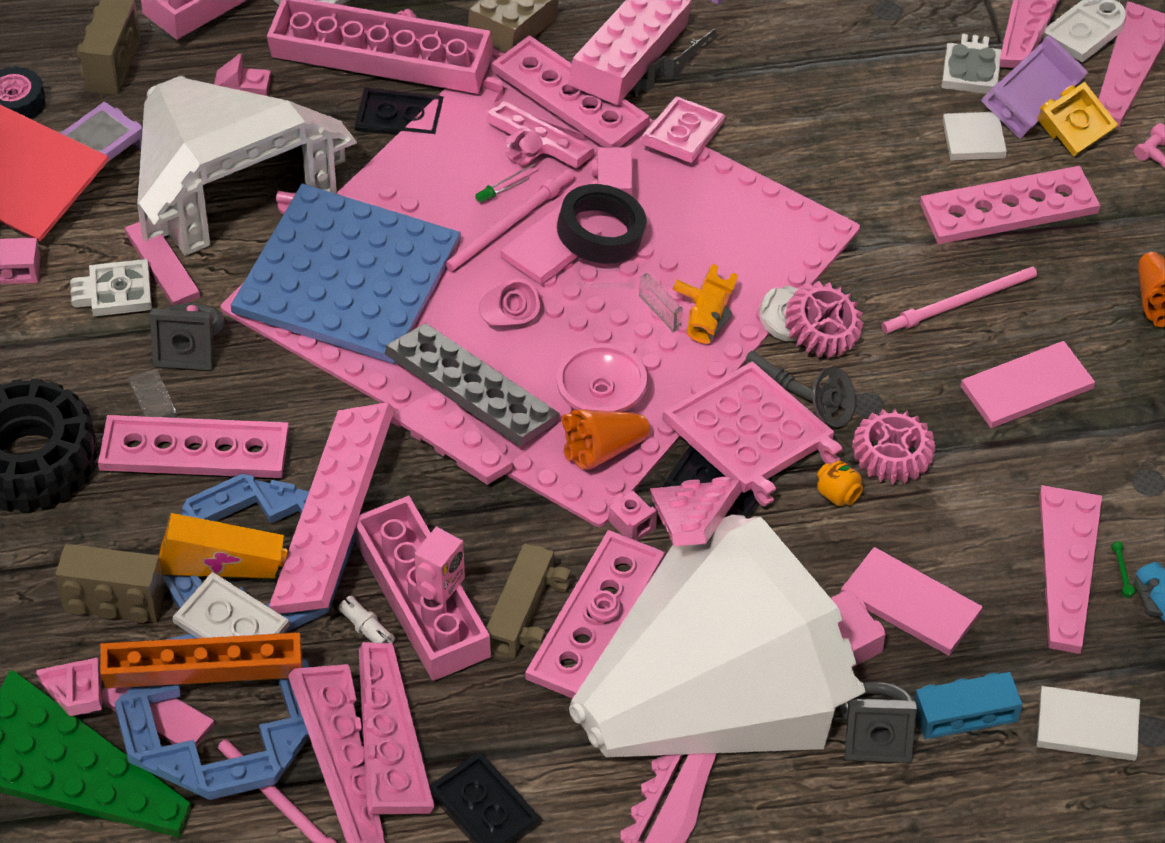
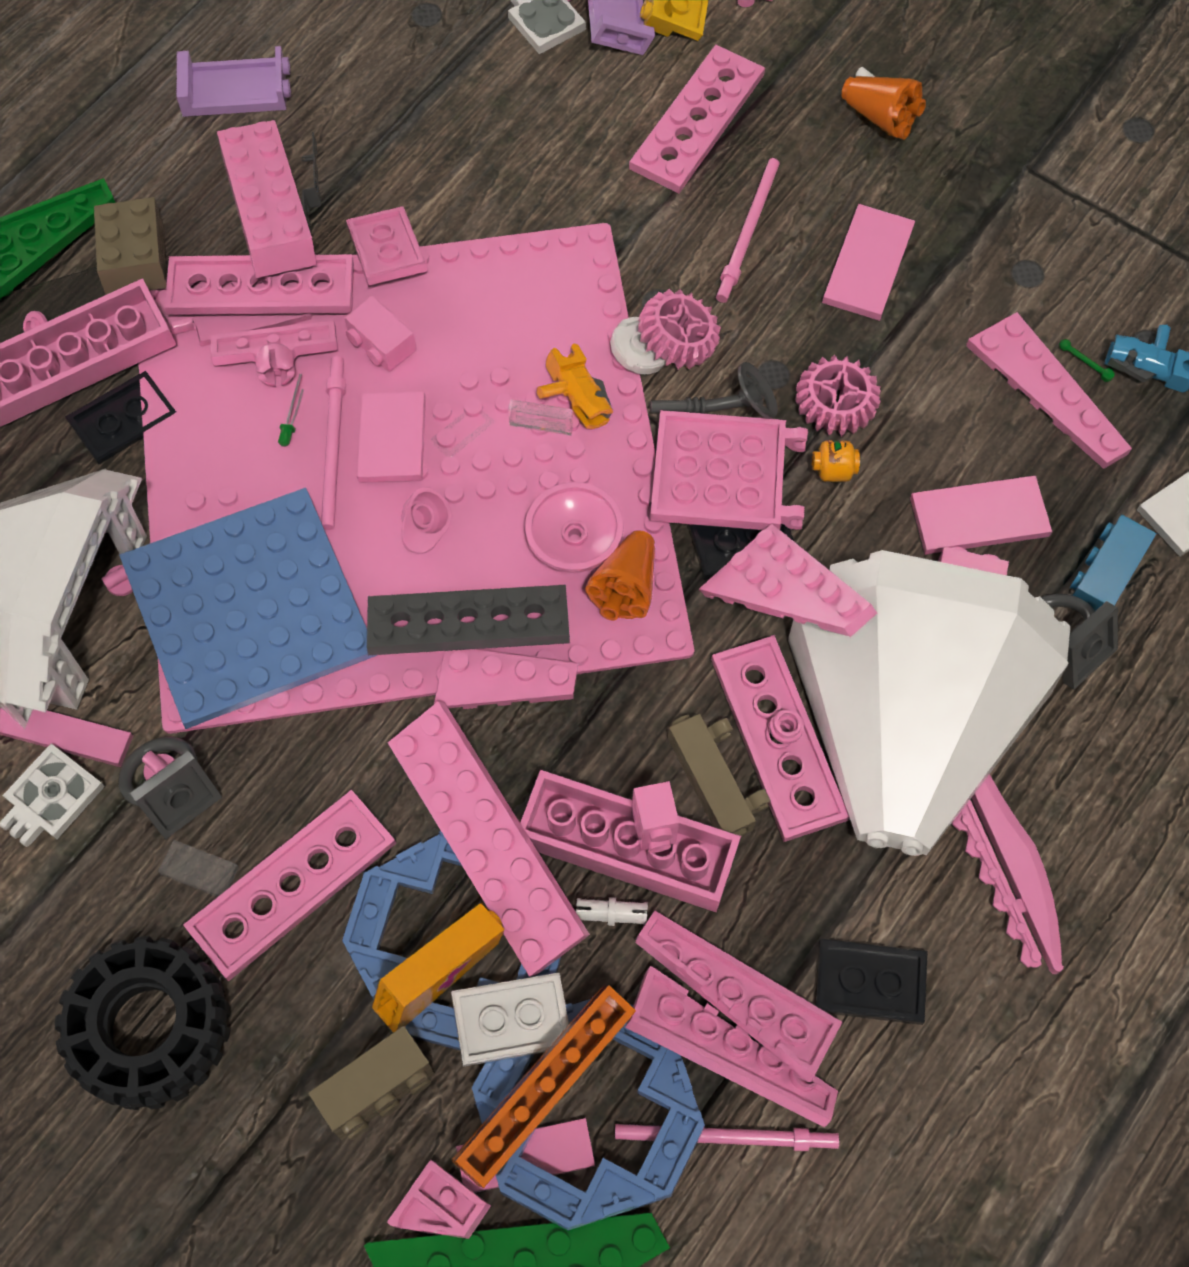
camera: 45 degrees left, 15 degrees up
(596, 247) = (420, 355): black tyre -> none
(632, 515) = (713, 635): bright pink brick -> none
(974, 136) = (610, 78): white tile -> none

